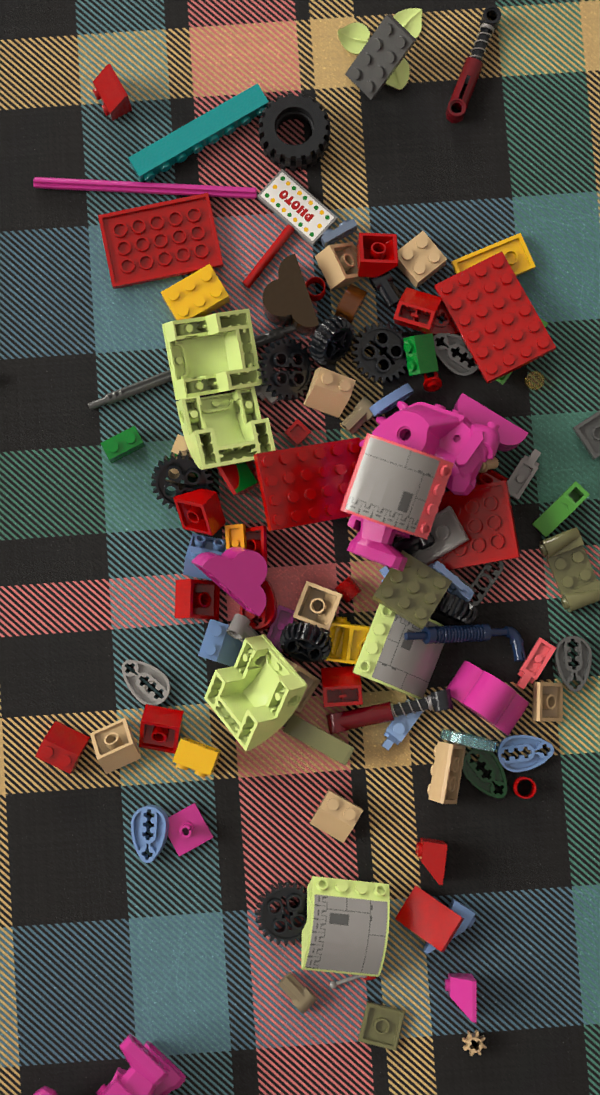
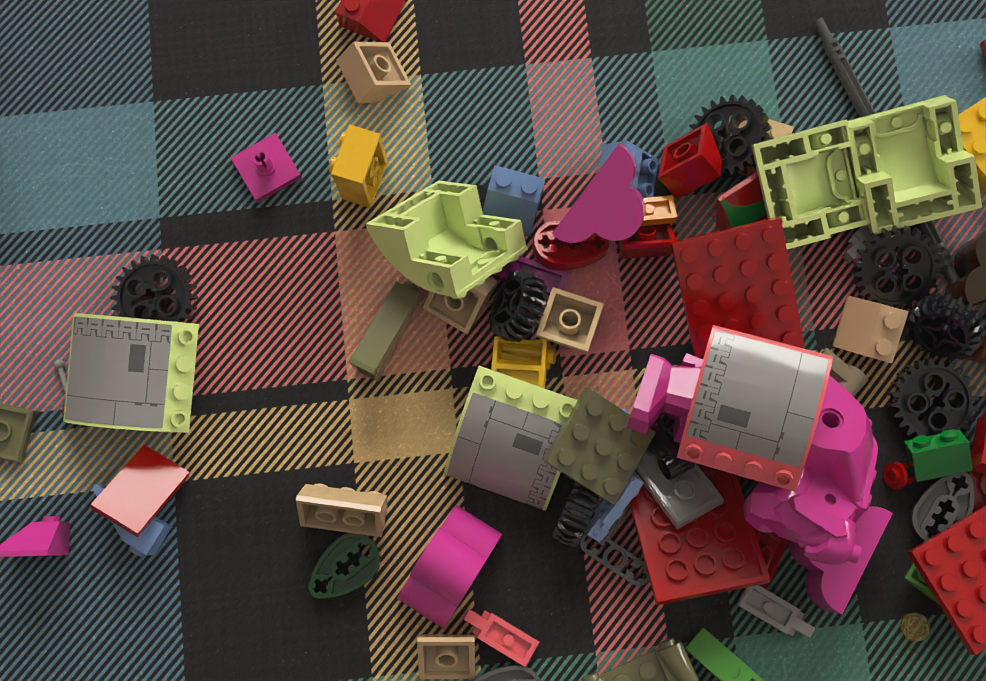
camera: 90 degrees right, 5 degrees down
(122, 444) = (772, 62): green brick -> none
(139, 828) = (263, 130): medium blue piece -> none
(155, 676) = (465, 119): light grey piece -> none
(160, 728) = (400, 124): red slope -> none
(196, 599) = (569, 164): red slope -> none
(240, 628) = (534, 218): light grey piece -> none
(297, 432) = (809, 290): red plate -> none
(301, 996) = (43, 321): dark tan piece -> none
(336, 816) = (285, 360): tan slope -> none
(341, 687) = (457, 358): red slope -> none
(348, 589) = (594, 365): red piece -> none
(386, 711) = (426, 423): piece -> none
(390, 401) = (881, 425): medium blue piece -> none
(399, 728) = (410, 446): light blue hinge -> none
(433, 856) = (224, 490): red slope -> none
(468, 740) = (388, 540): clear light blue piece -> none
(470, 633) = (540, 535): dark blue piece -> none
(490, 464) = (785, 551): tan pin -> none
(522, 764) = (357, 622): medium blue piece -> none
(533, 790) = (310, 626): red piece -> none

